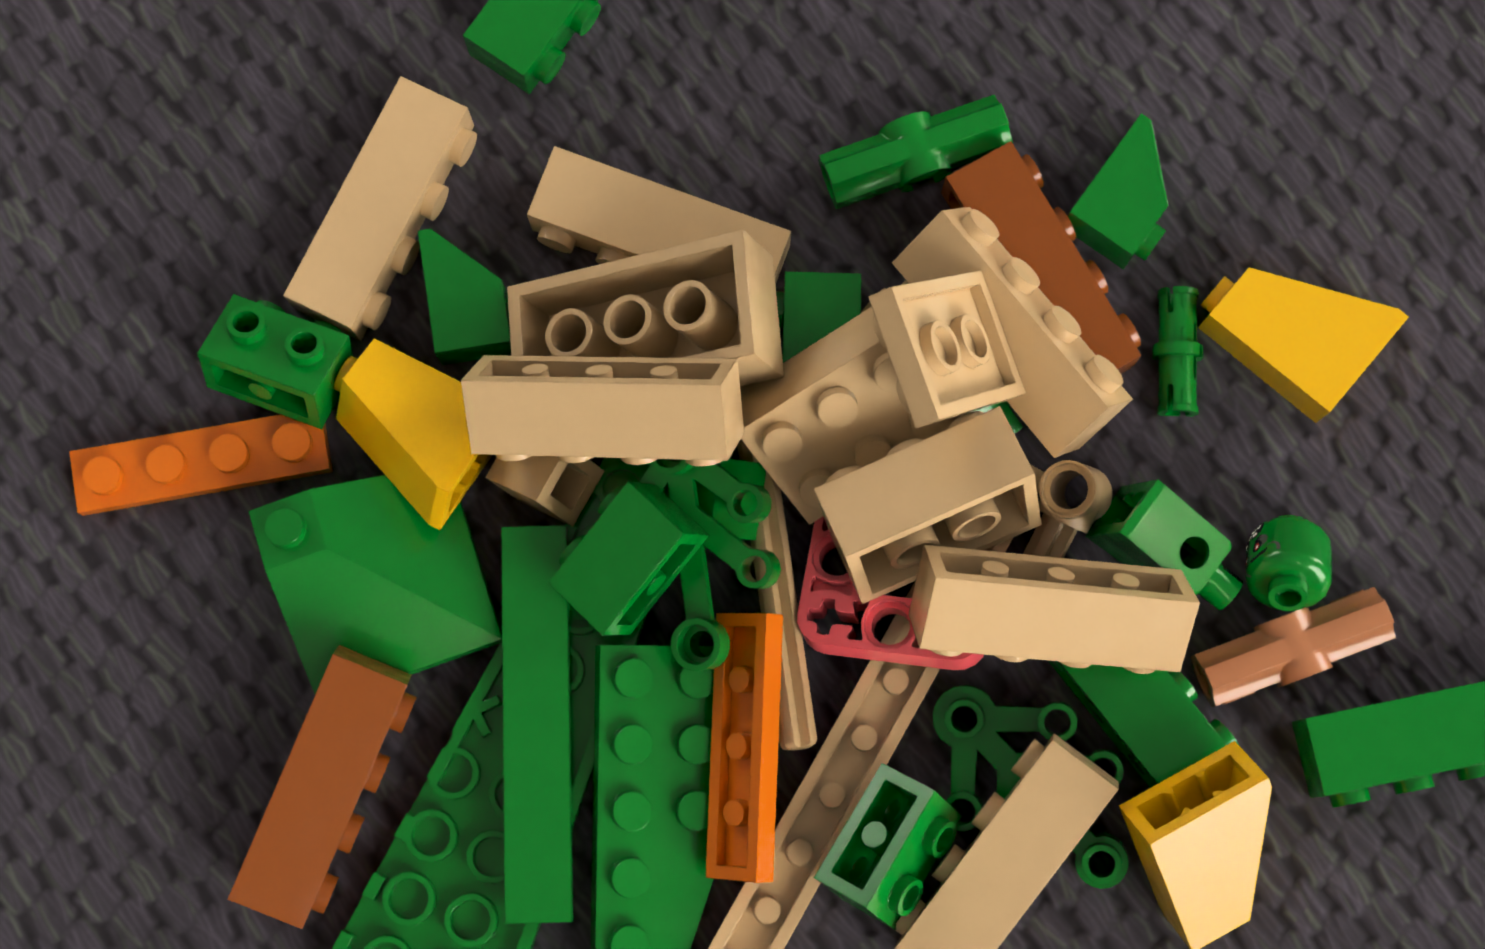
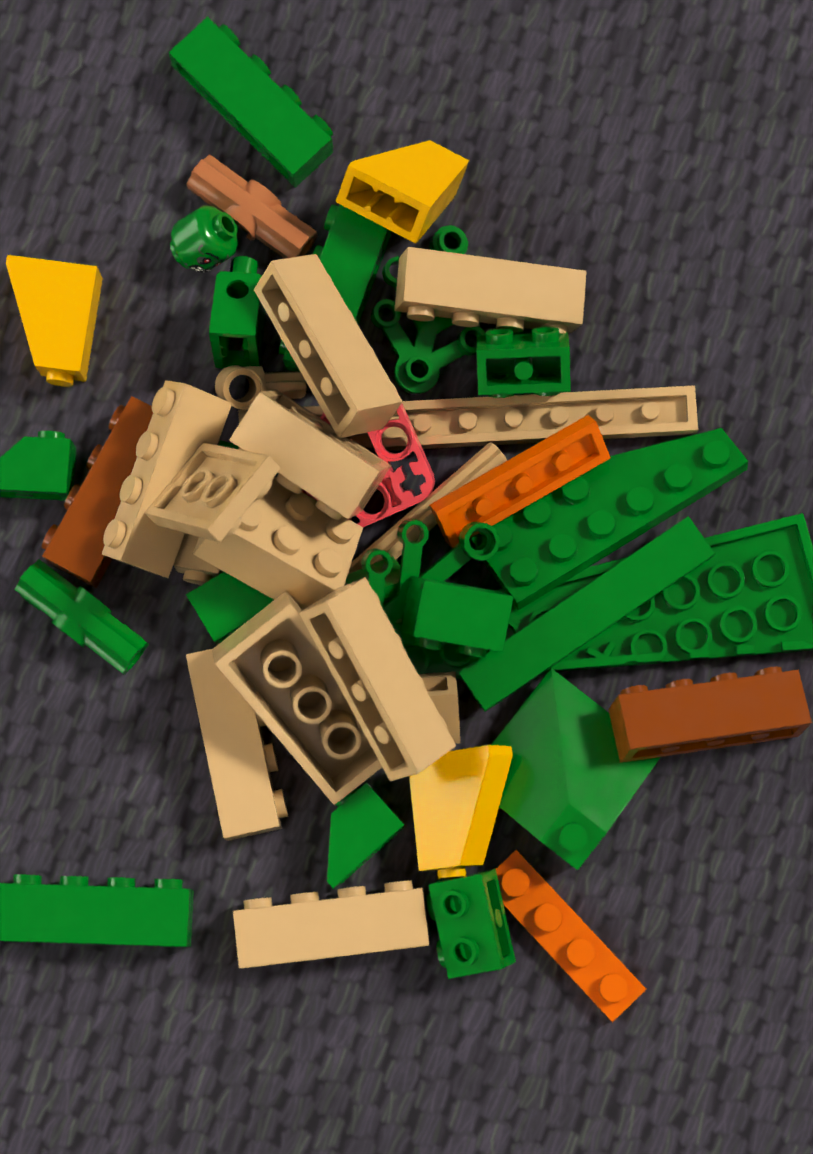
camera: 120 degrees left, 0 degrees up
(1177, 351) = (110, 382): green pin -> none

